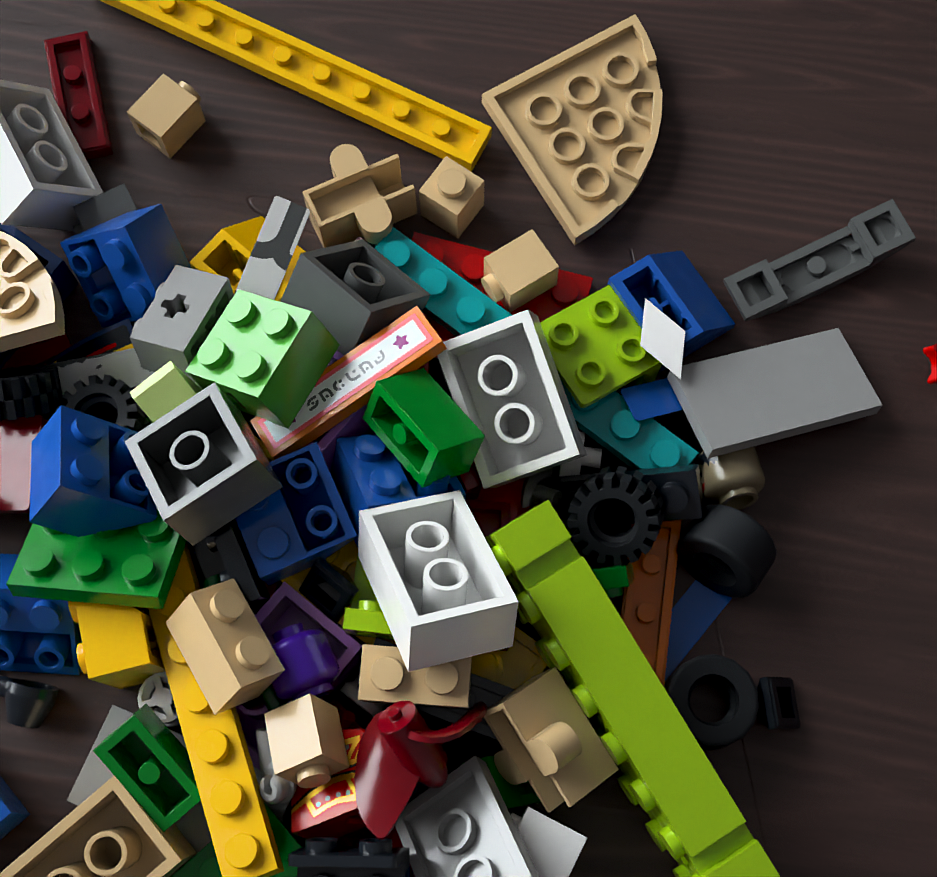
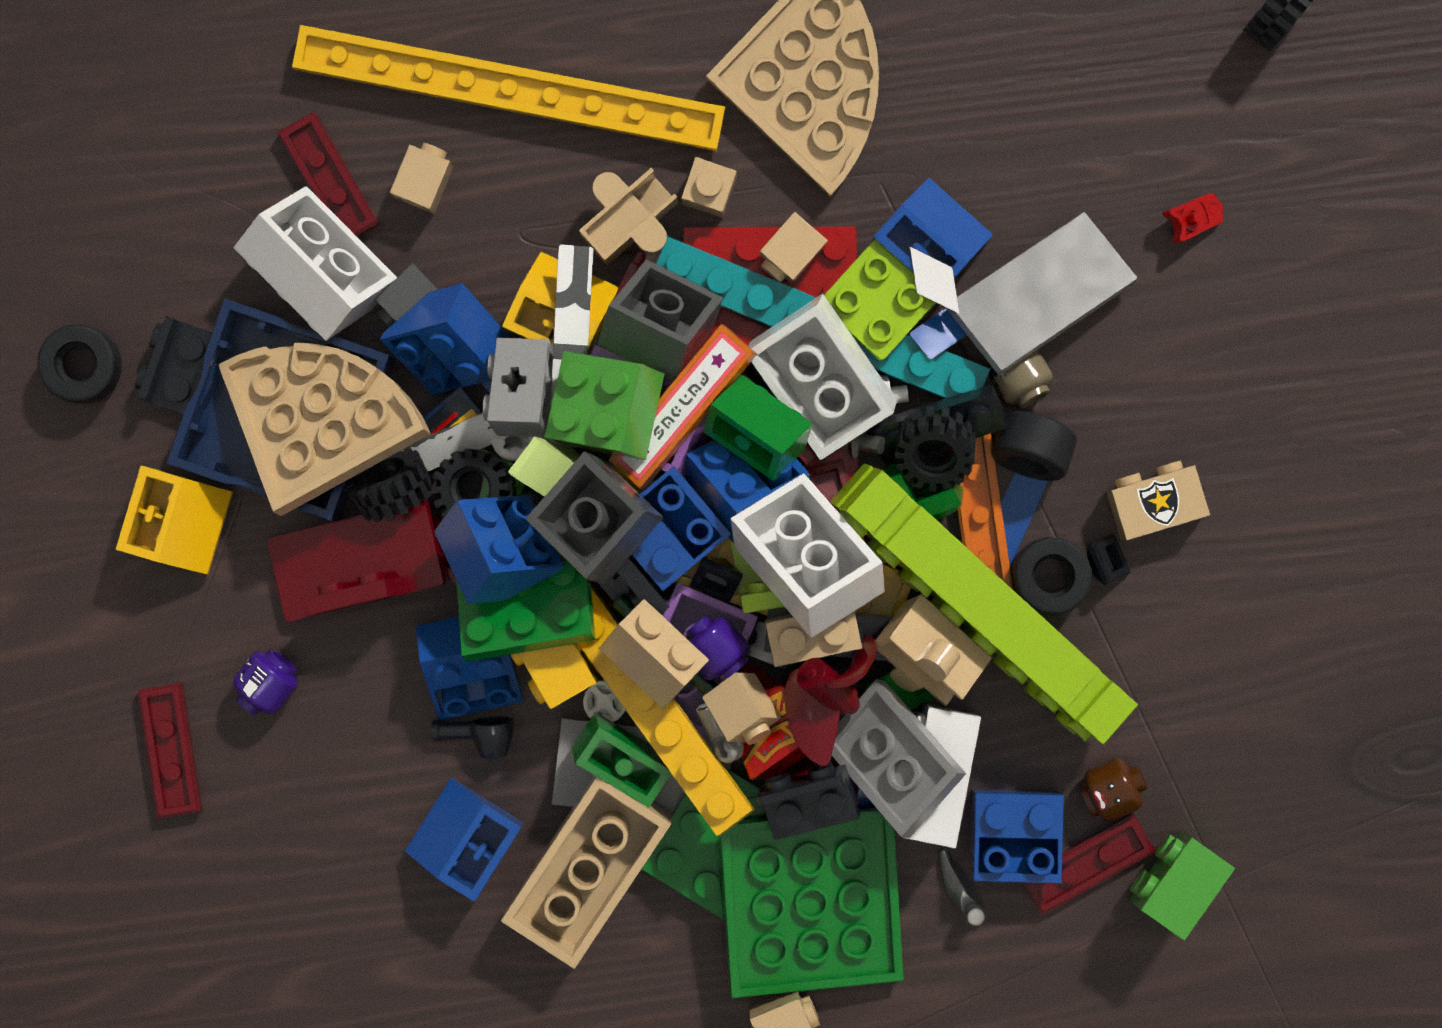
camera: 15 degrees left, 15 degrees up
(821, 264) = (1053, 156): dark grey slope -> none
(851, 652) = (1157, 502): none -> tan brick

